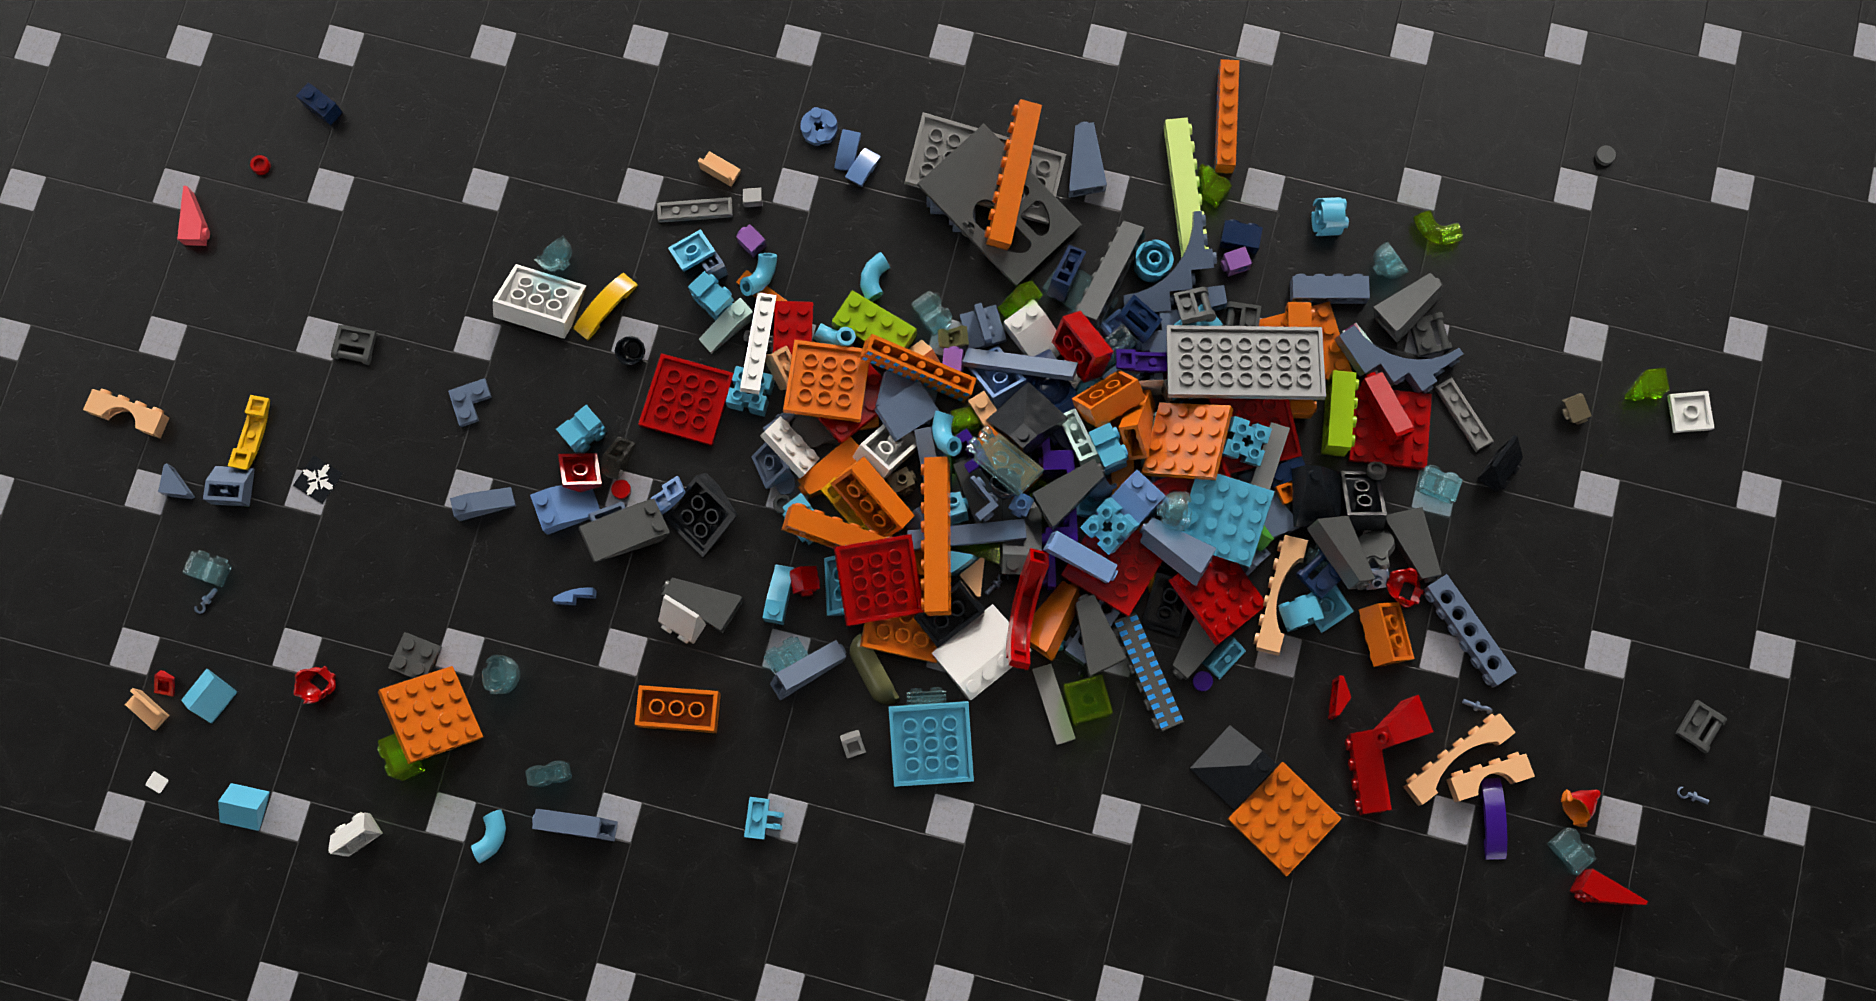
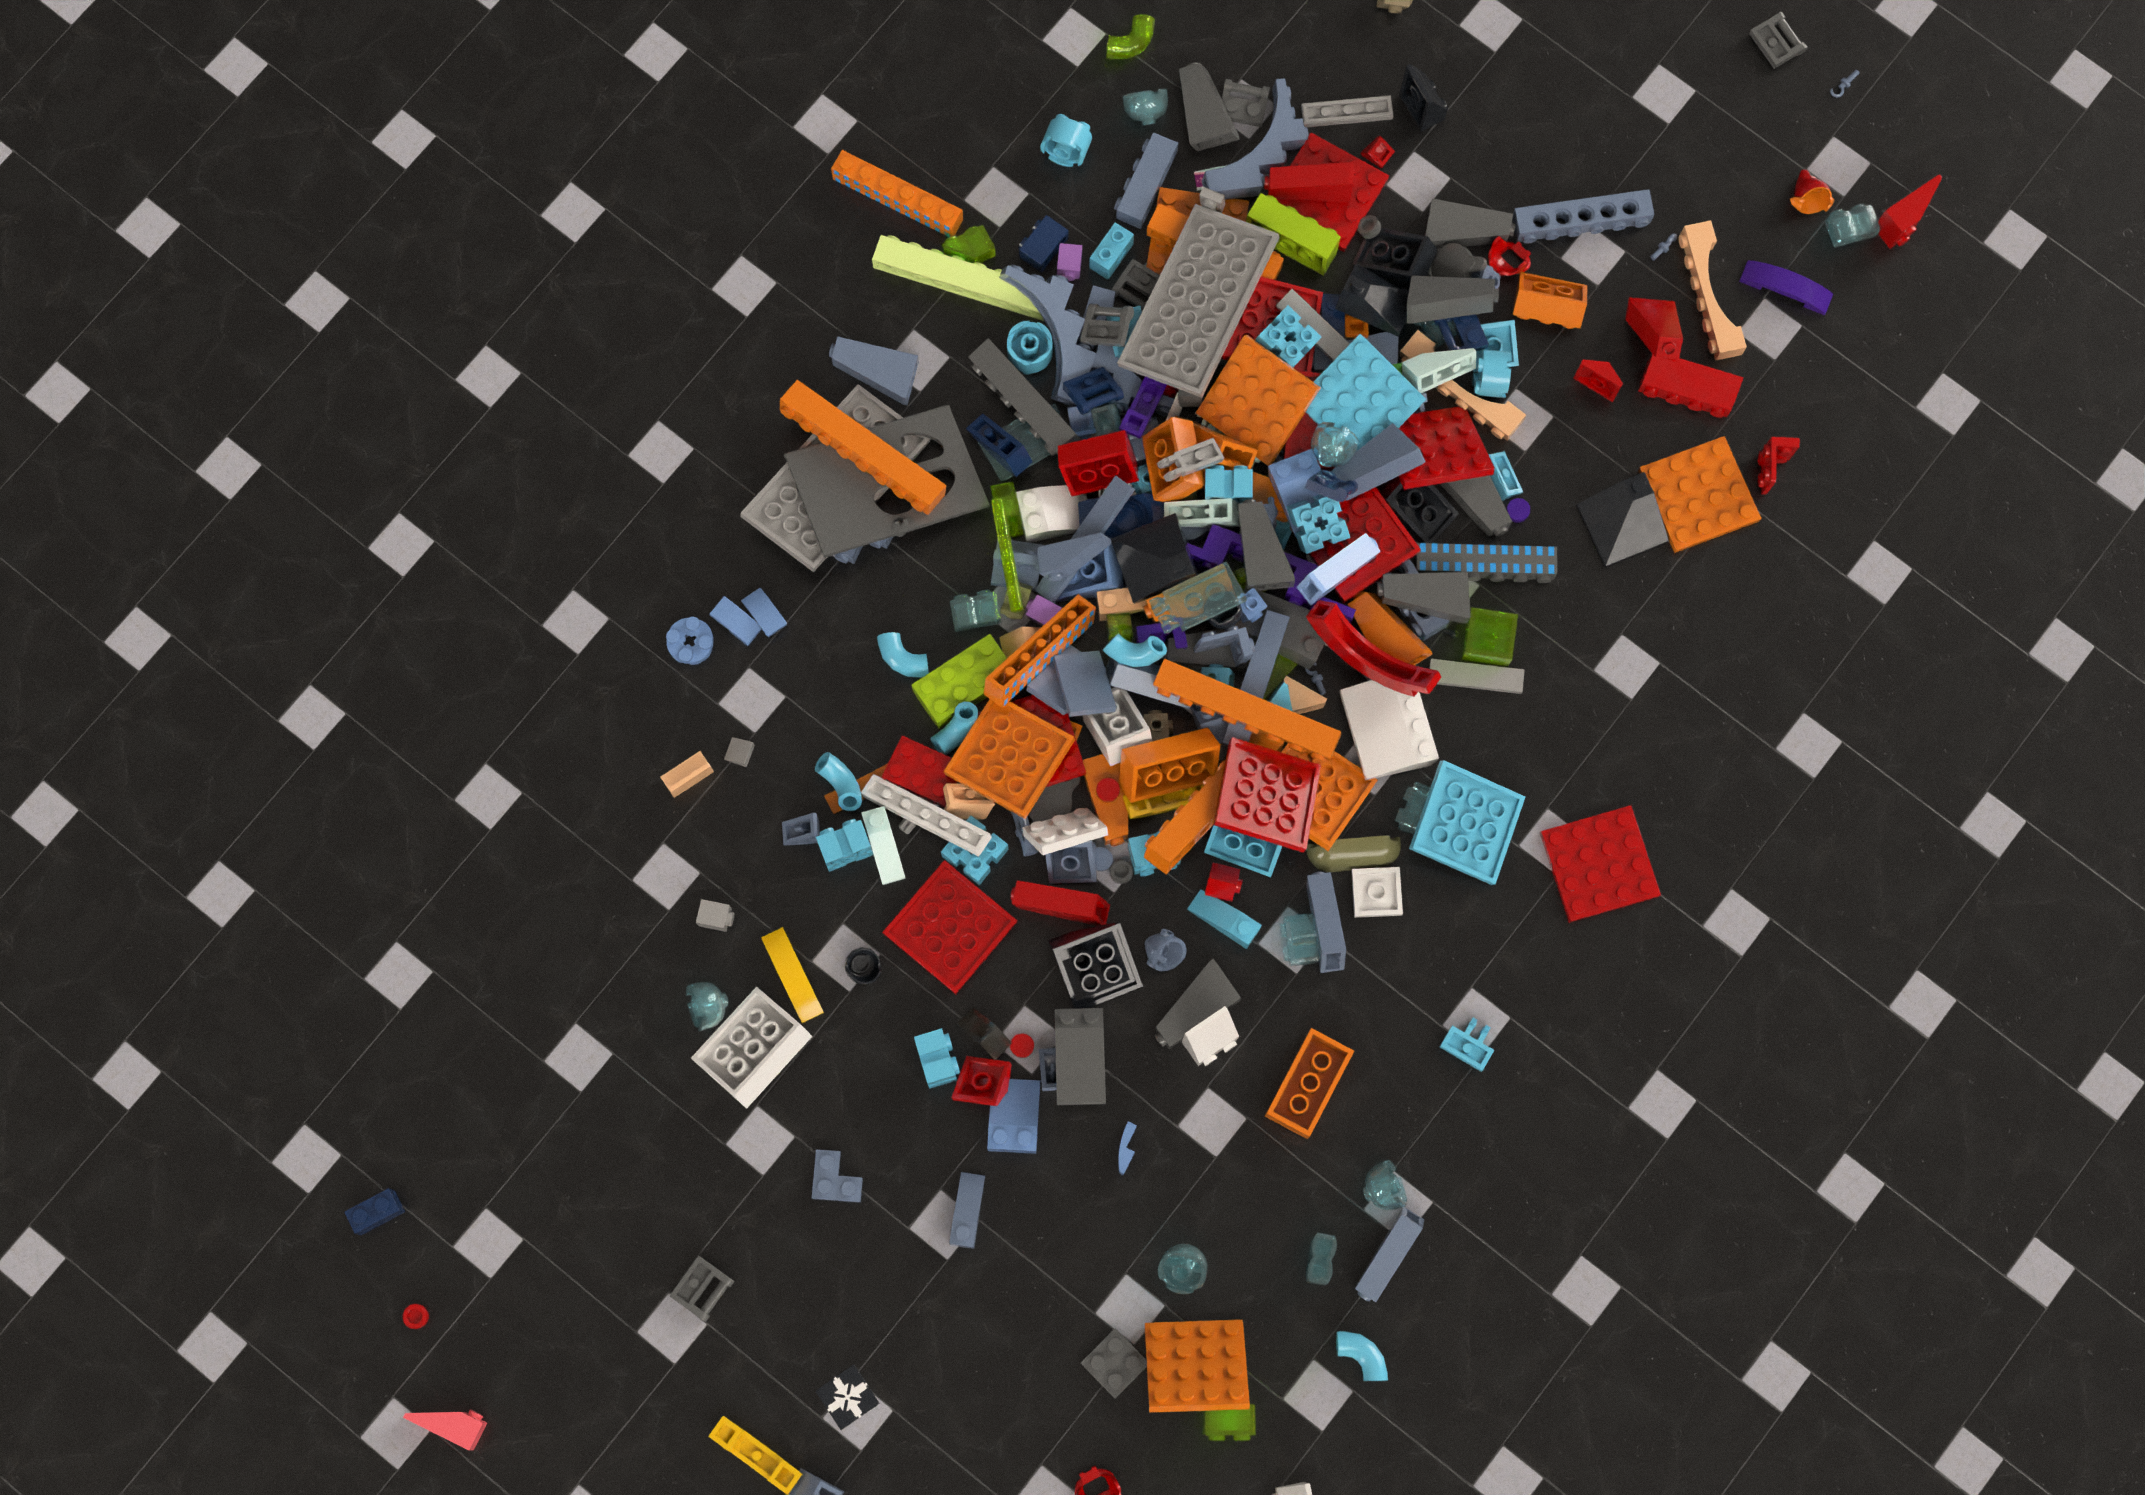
camera: 70 degrees left, 0 degrees up
(622, 232) = (714, 915): none -> light grey brick
(623, 799) = (1384, 1187): none -> clear light blue cylinder
(670, 495) = (1057, 990): medium blue slope -> none
(691, 250) = (774, 846): medium azure slope -> none
(694, 209) = (723, 824): light grey tile -> none
(733, 560) = (1164, 950): none -> sand blue helmet
(737, 470) = (1061, 903): none -> red slope
(751, 240) = (793, 774): medium lavender brick -> none
(835, 464) = (1108, 790): none -> red tile
(848, 699) = (1377, 892): none -> white plate
(852, 743) = (1426, 910): light grey slope -> none
(947, 862) = (1600, 863): none -> red plate
(964, 610) = (1347, 753): black slope -> none
(980, 312) = (1007, 555): none -> clear neon green axle
(999, 357) = (1068, 556): none -> sand blue slope
(1109, 407) = (1192, 459): none -> light grey hinge
(1137, 515) = (1328, 485): none -> dark blue plate
(1259, 287) = (1111, 251): none -> medium azure brick
(1281, 566) = (1436, 368): none -> light aqua slope
(1329, 339) = (1212, 200): none -> light grey hinge
(1348, 867) = (1775, 451): none -> red bracket
(1439, 484) = (1413, 171): clear light blue brick -> none
(1442, 452) = (1378, 152): none -> red slope
(1513, 769) = (1742, 295): light nougat arch -> none

